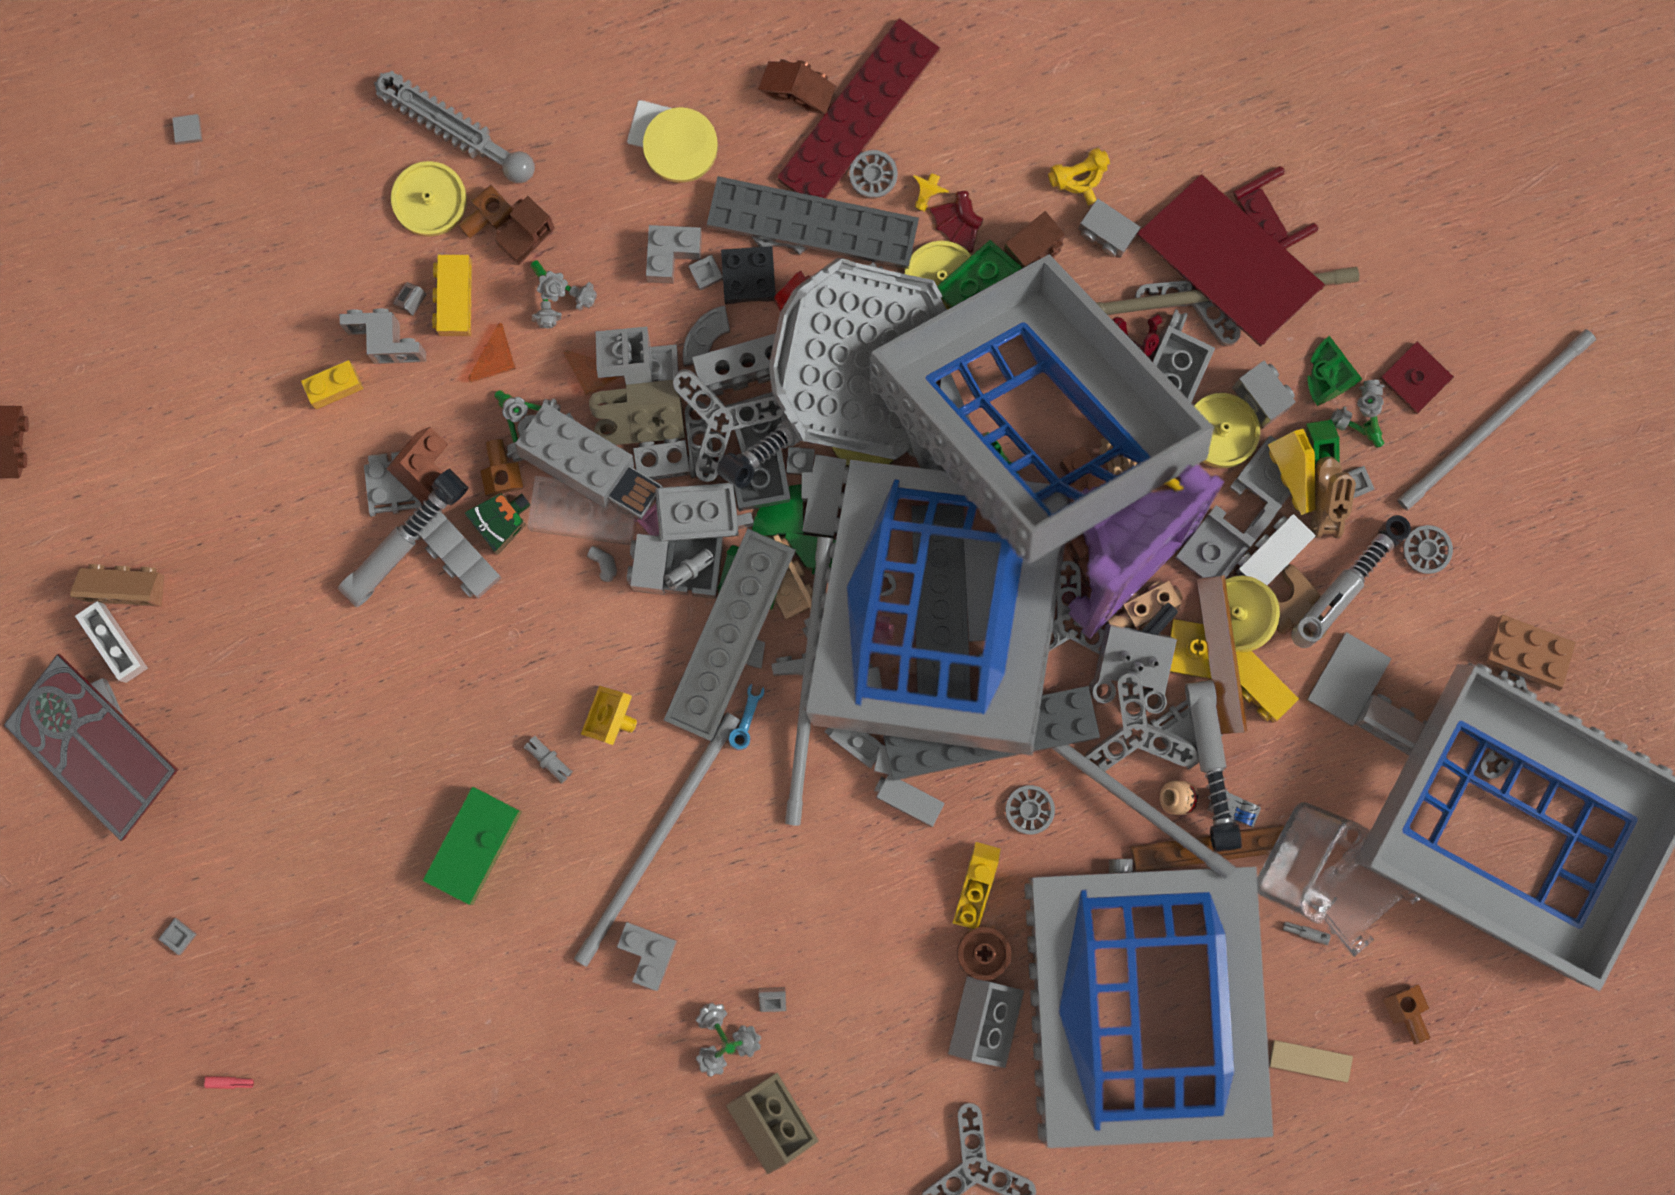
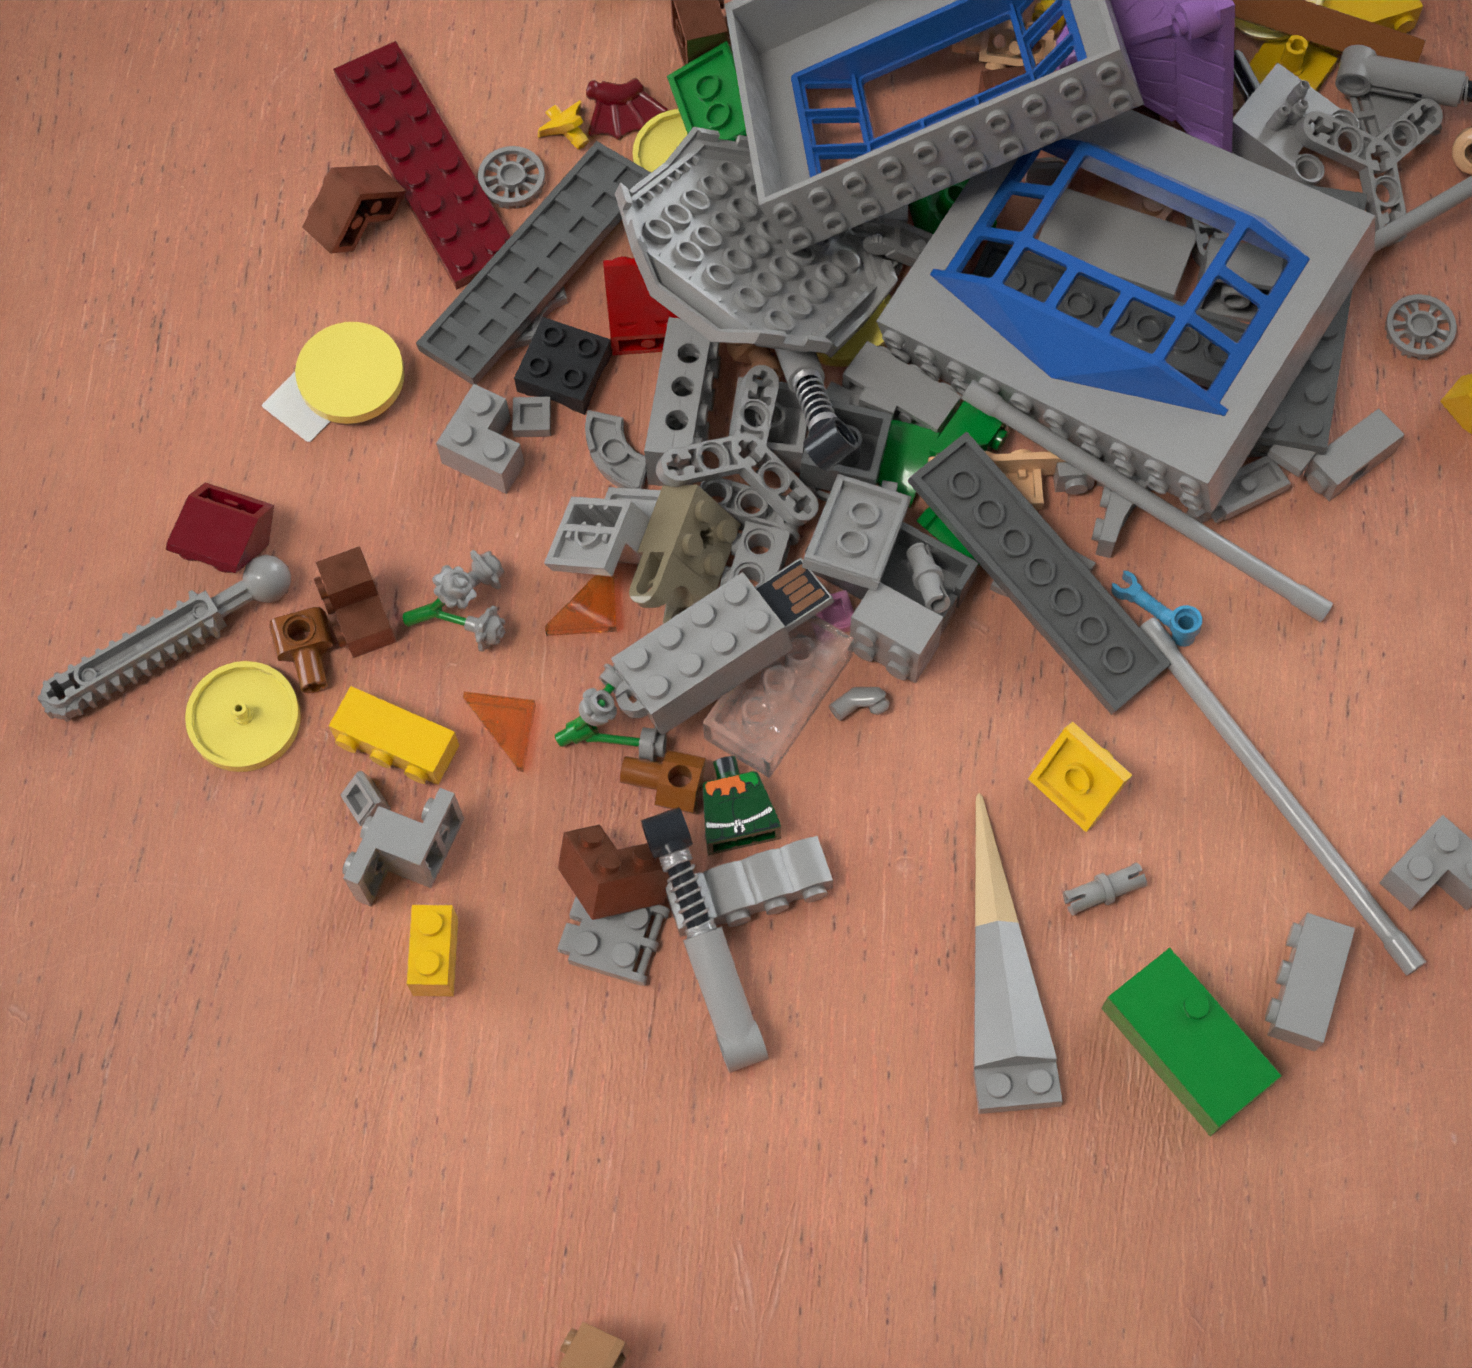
camera: 60 degrees left, 15 degrees down
(434, 740) = (1011, 1036): none -> light grey plate
(534, 123) = (221, 528): none -> dark red slope
(541, 901) = (1309, 981): none -> light grey brick

